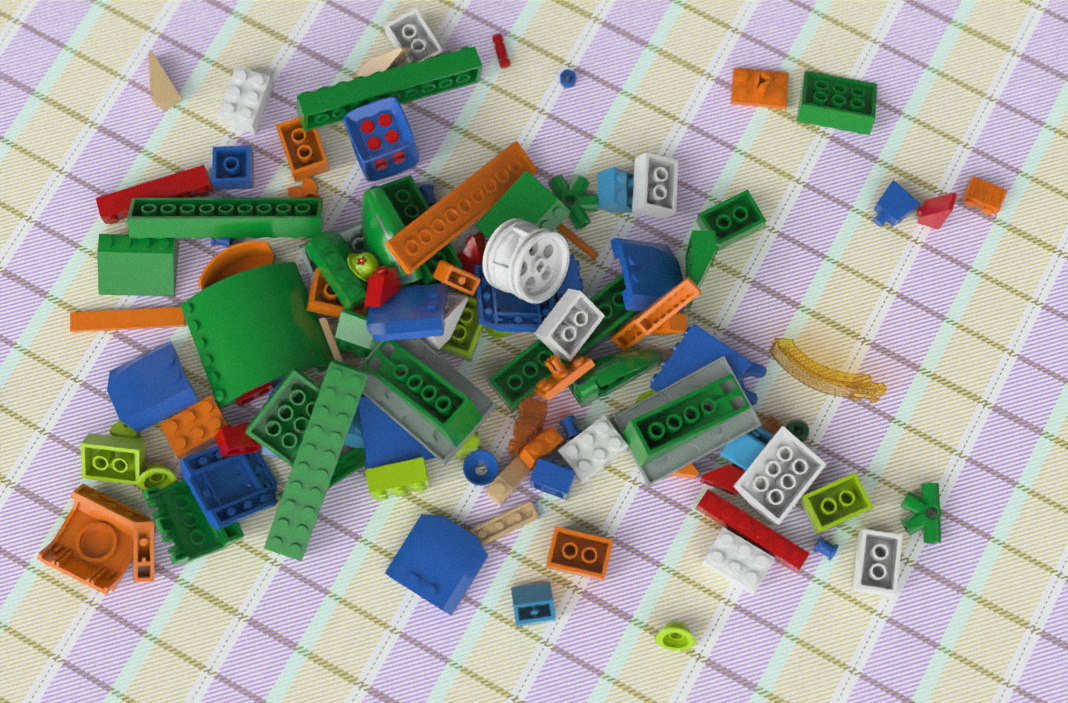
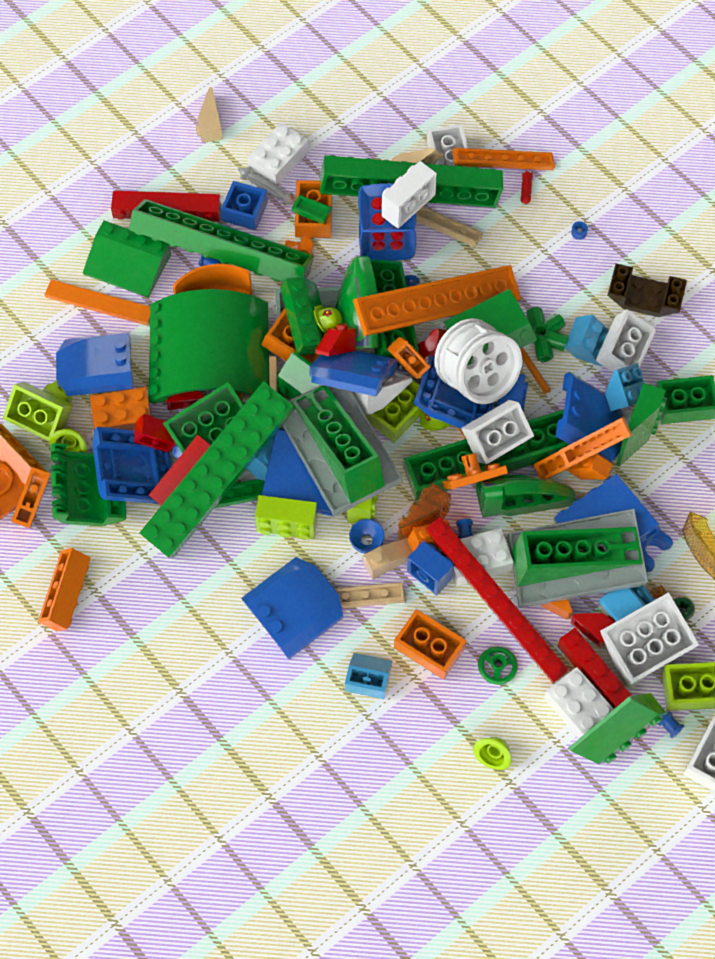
camera: 20 degrees right, 10 degrees down
(212, 629) = (64, 590): none -> orange brick
(246, 137) = (267, 185): none -> light grey wheel
(280, 472) = (179, 470): none -> red tile
(302, 151) = (311, 209): none -> green tile
(396, 111) = (408, 194): none -> white brick
(440, 118) = (448, 226): none -> tan tile
(468, 30) = (503, 159): none -> orange tile
(625, 488) = (496, 600): none -> red plate
(653, 543) = (501, 659): none -> green piece
(655, 124) = (644, 294): none -> dark brown slope
(672, 233) = (624, 387): none -> dark azure slope
(785, 576) = (619, 728): none -> green slope

